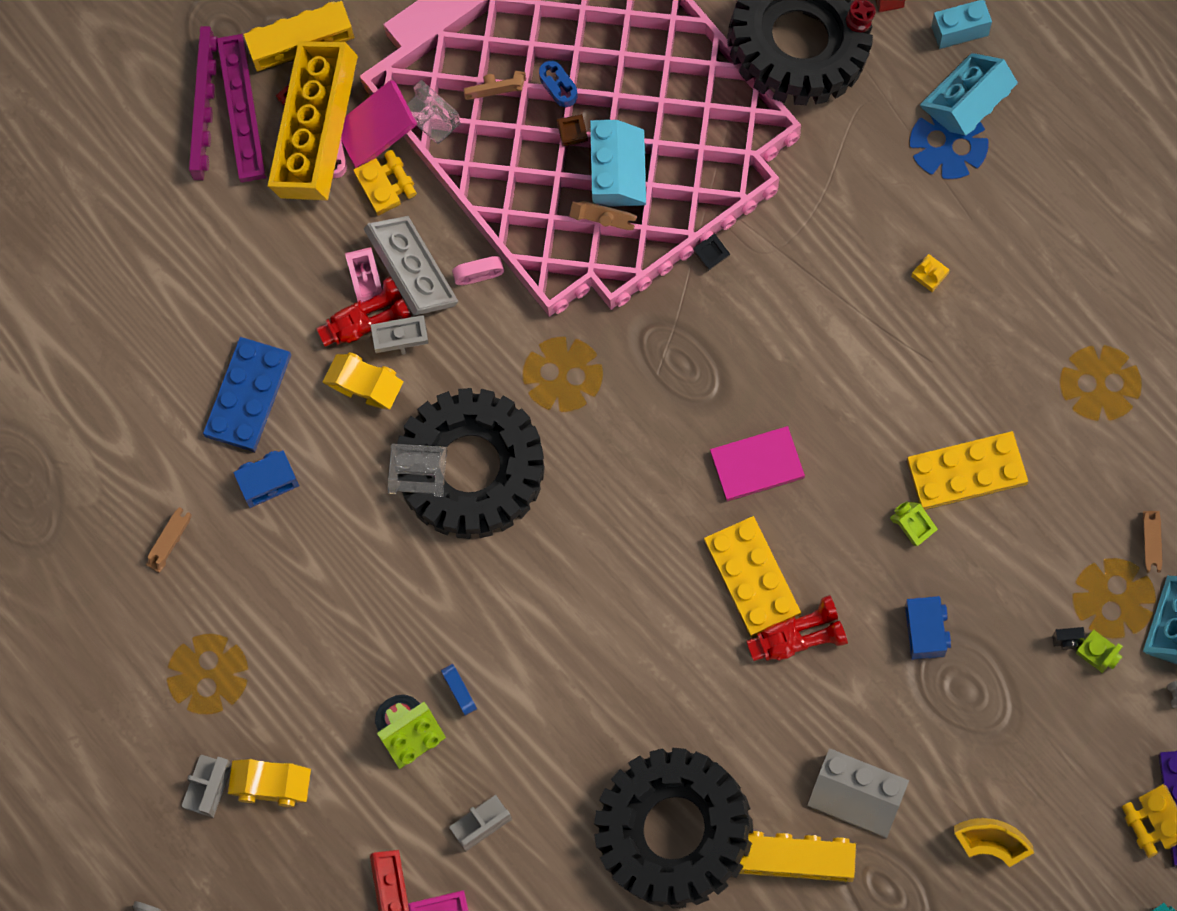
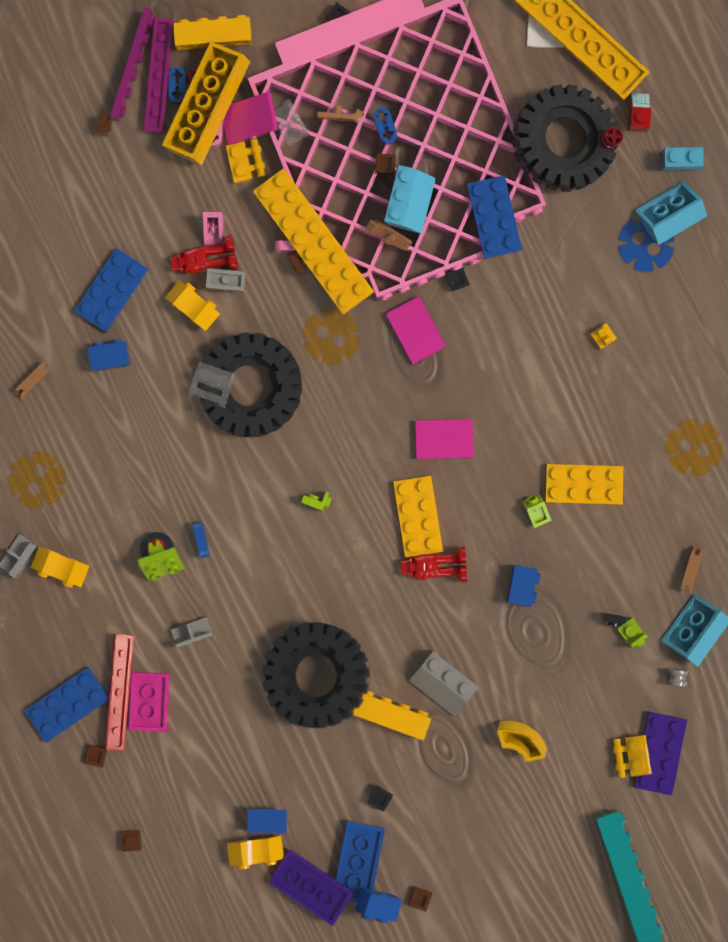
camera: 10 degrees right, 15 degrees up
(185, 186) = (105, 124): none -> reddish brown plate
(264, 115) = (182, 85): none -> blue beam
(411, 265) = (247, 230): light grey tile -> none
(491, 290) = (298, 264): none -> reddish brown plate
(505, 252) = (313, 241): none -> yellow plate
(602, 595) = (313, 501): none -> lime bracket
(675, 333) = (415, 330): none -> dark pink tile
(737, 157) = (494, 217): none -> blue plate
(1137, 593) = (638, 597): clear yellow piece -> none

